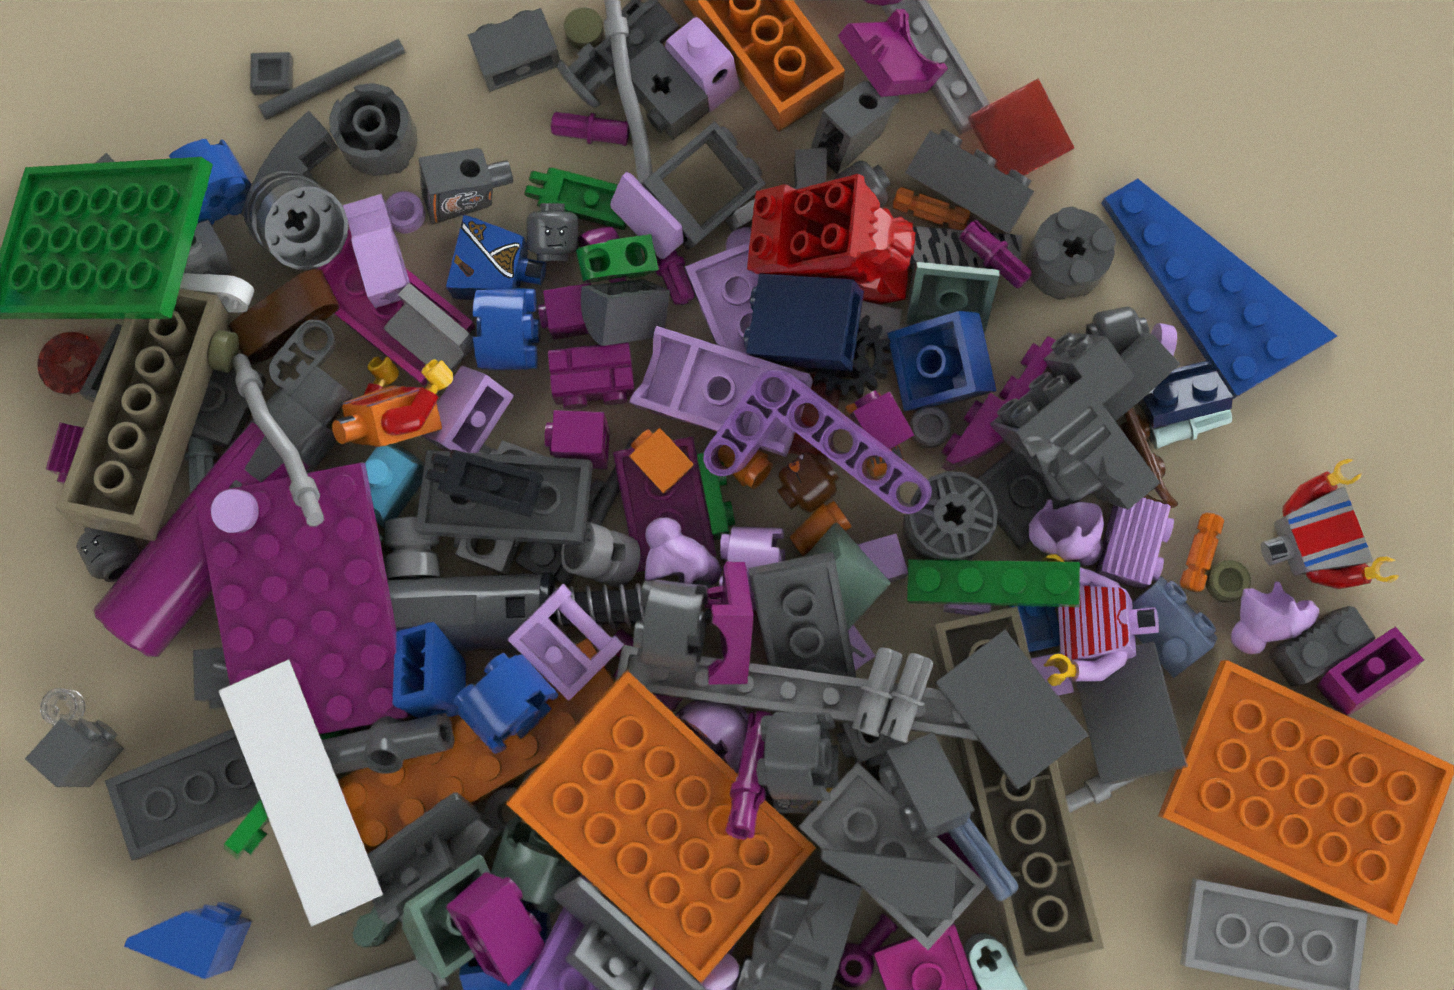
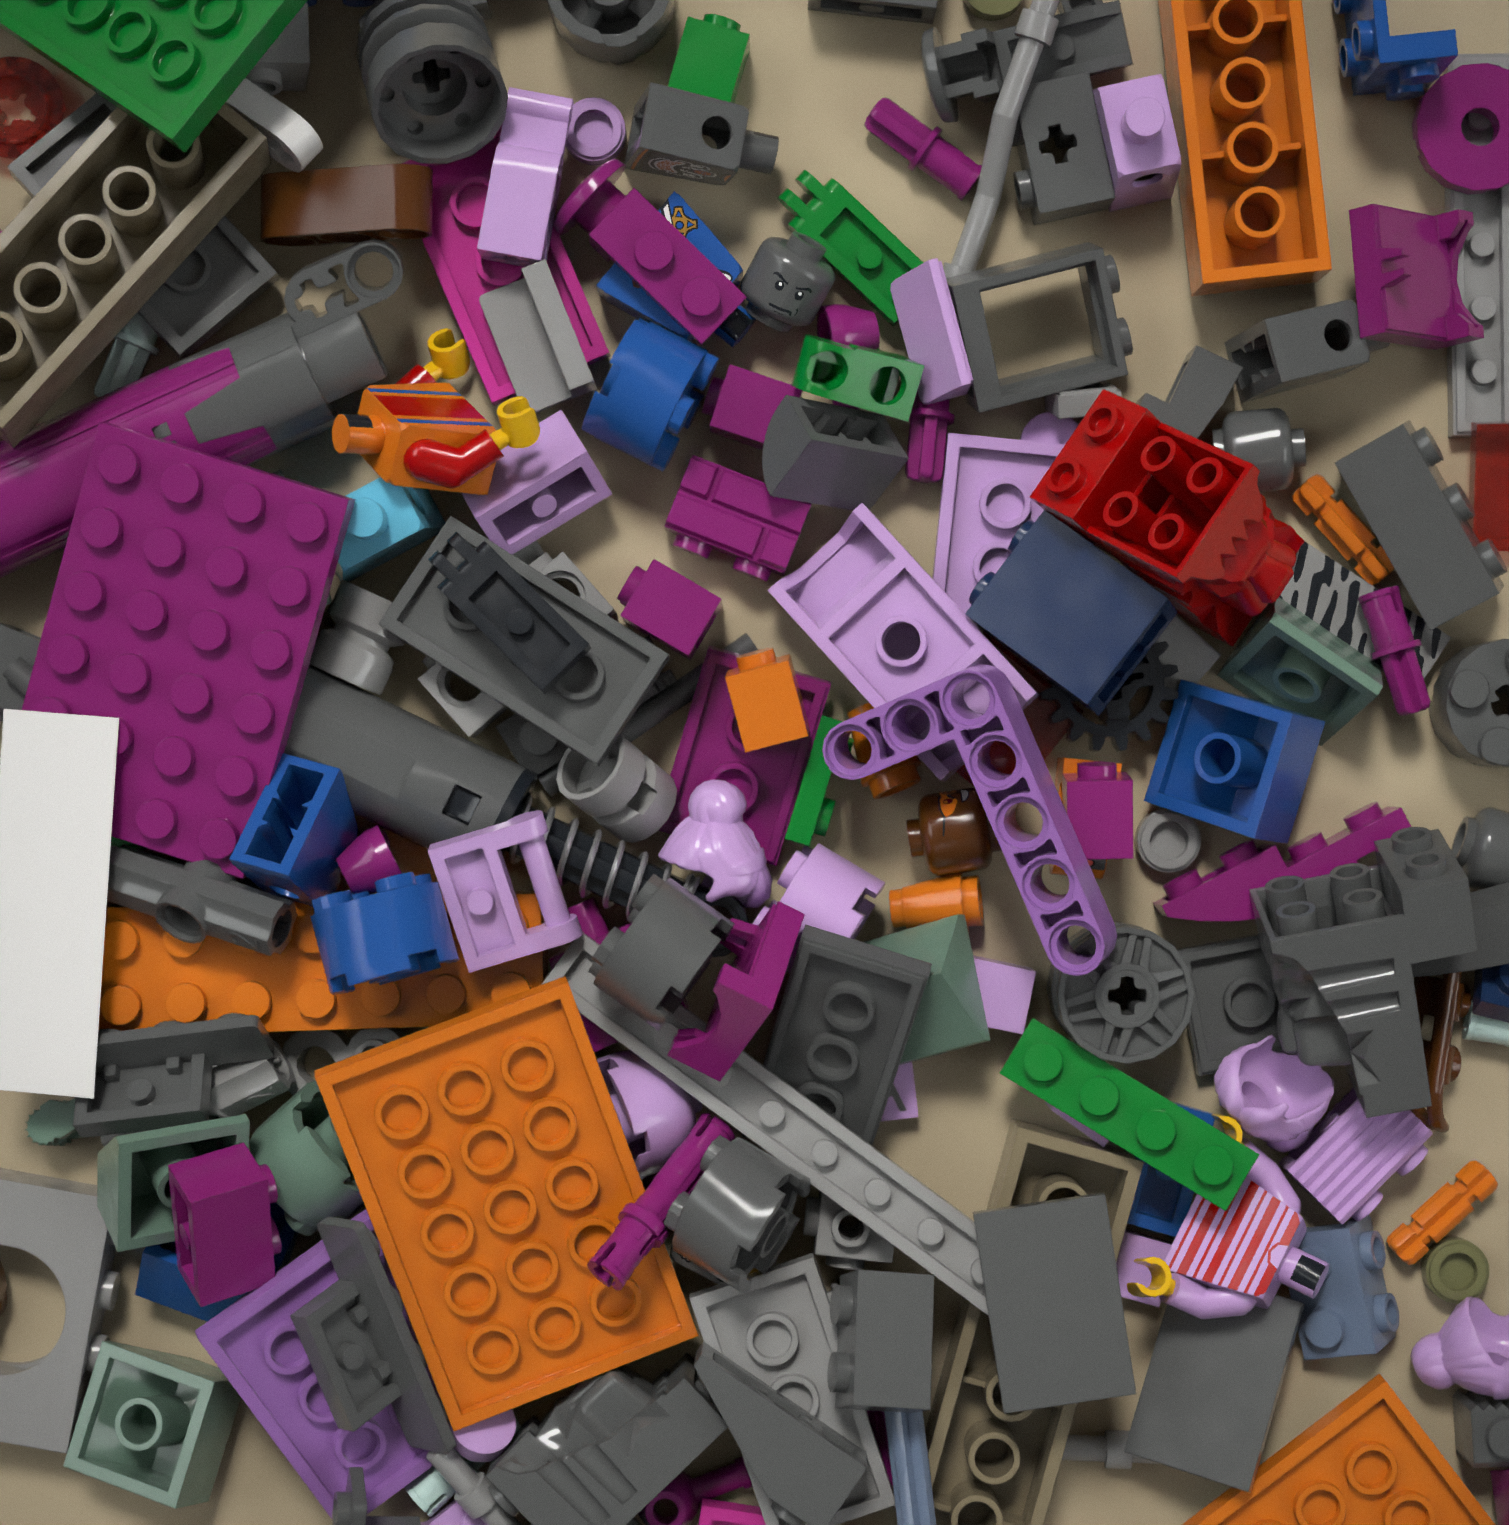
camera: 25 degrees right, 10 degrees up
(222, 349) = (236, 214): olive tile -> none
(234, 511) = (143, 478): lavender tile -> none
(302, 487) = (251, 501): light grey bar -> none
(447, 133) = (711, 57): none -> green brick
(465, 252) = (650, 252): none -> magenta piece
(473, 667) = (367, 861): none -> magenta bar
(878, 691) = (888, 1185): light grey axle -> none
(907, 697) = (924, 1214): light grey axle -> none

